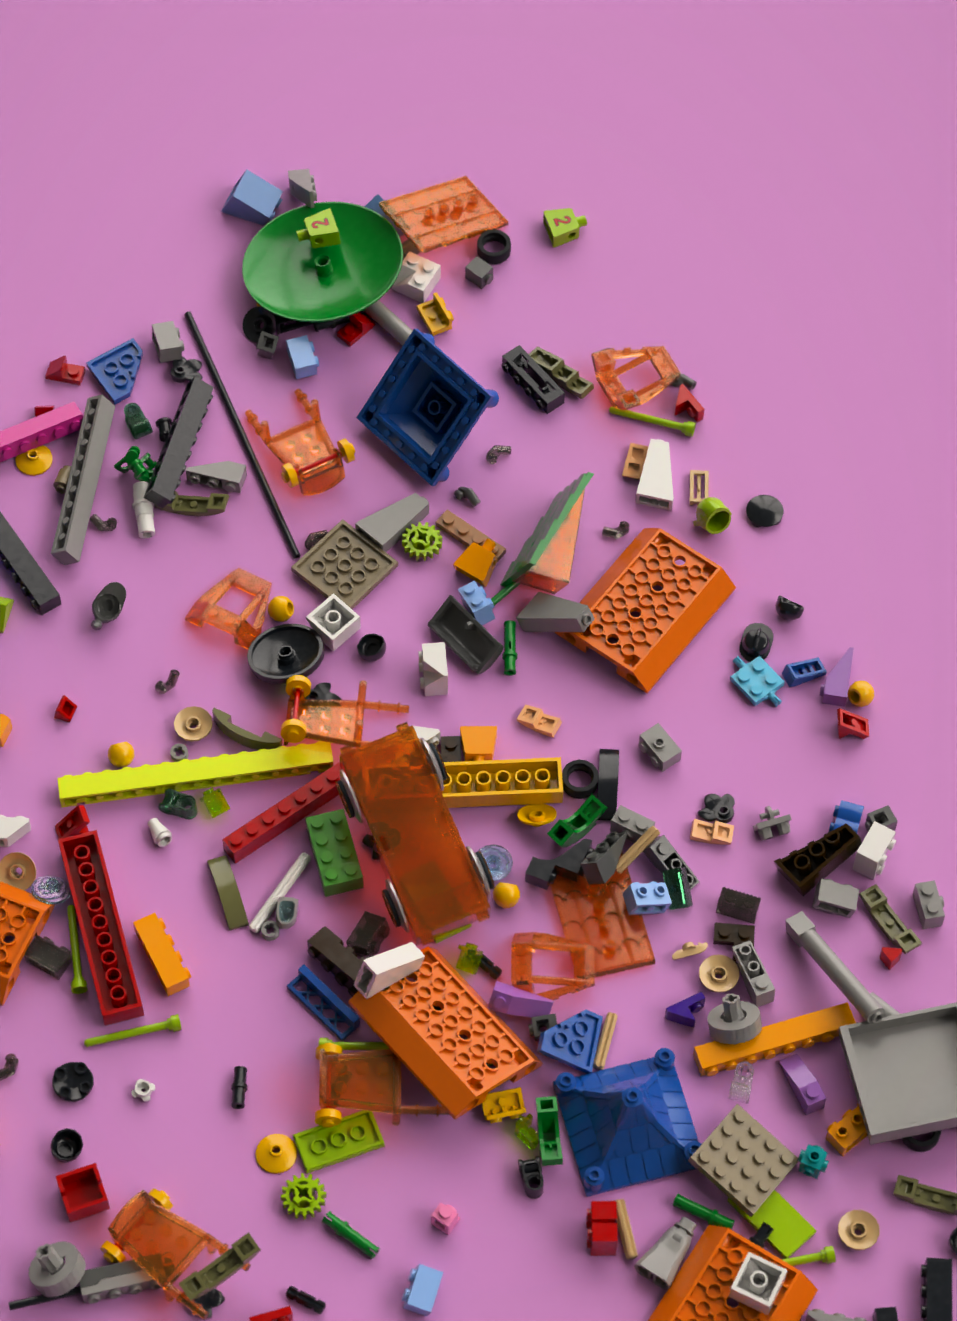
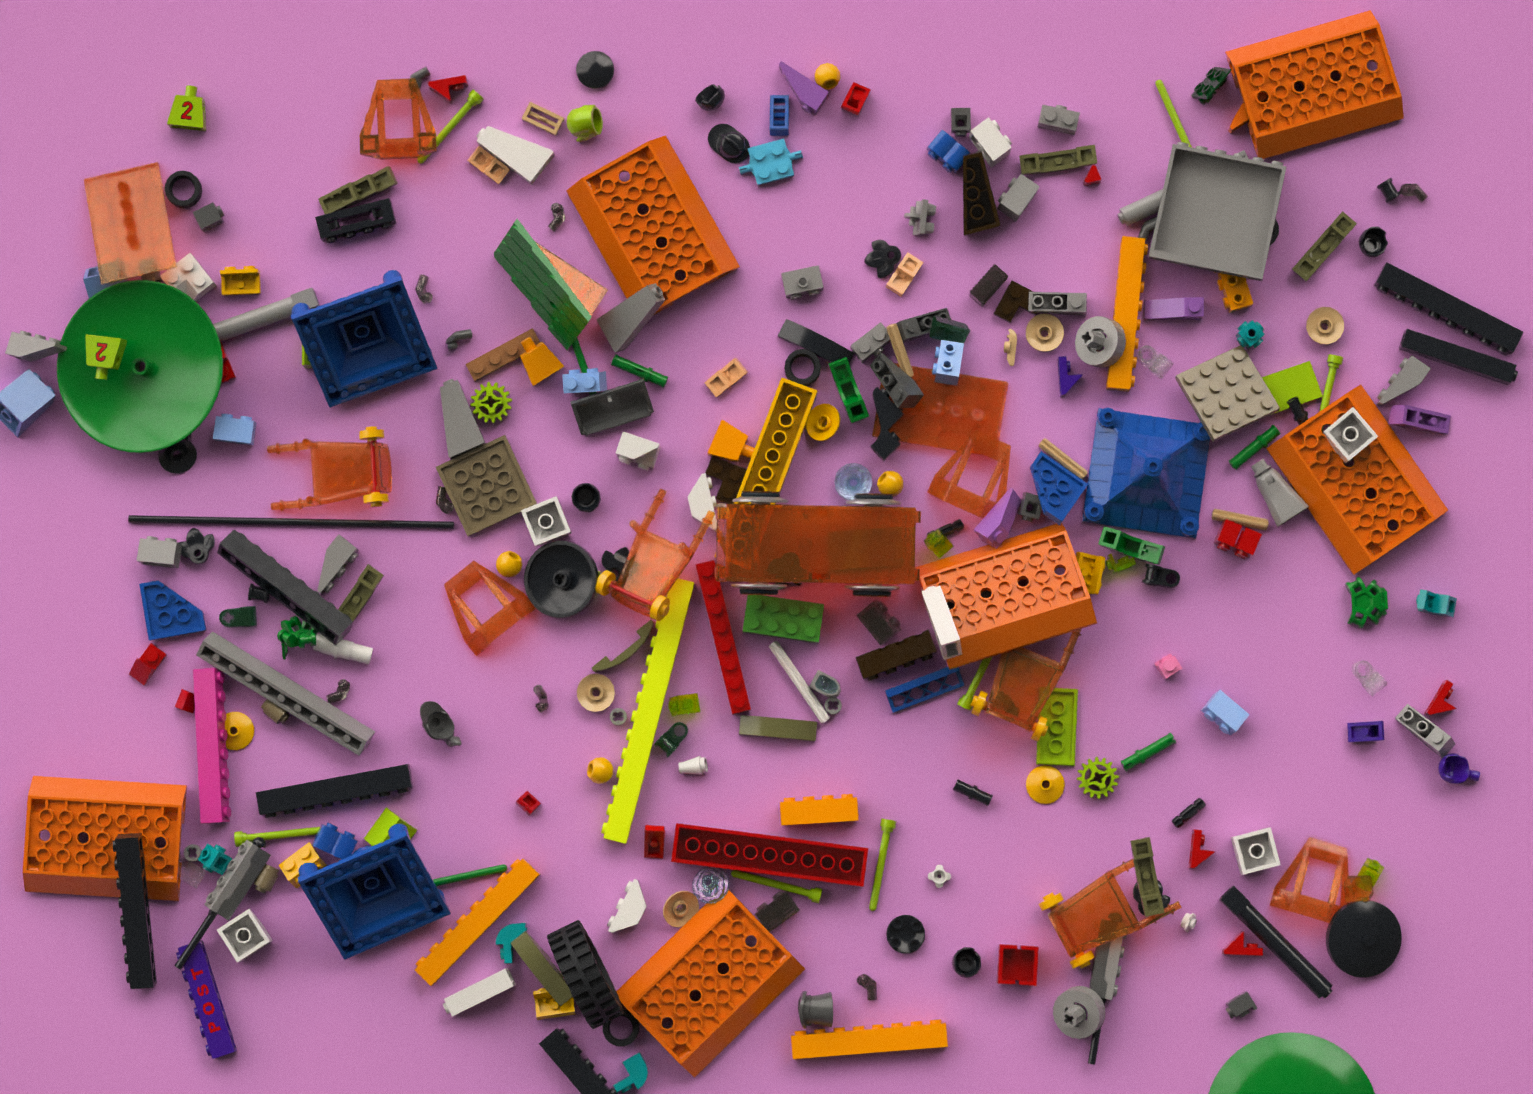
camera: 60 degrees left, 25 degrees up
(266, 345) = (207, 458): dark grey brick -> none
(805, 935) = (1042, 240): light grey brick -> none

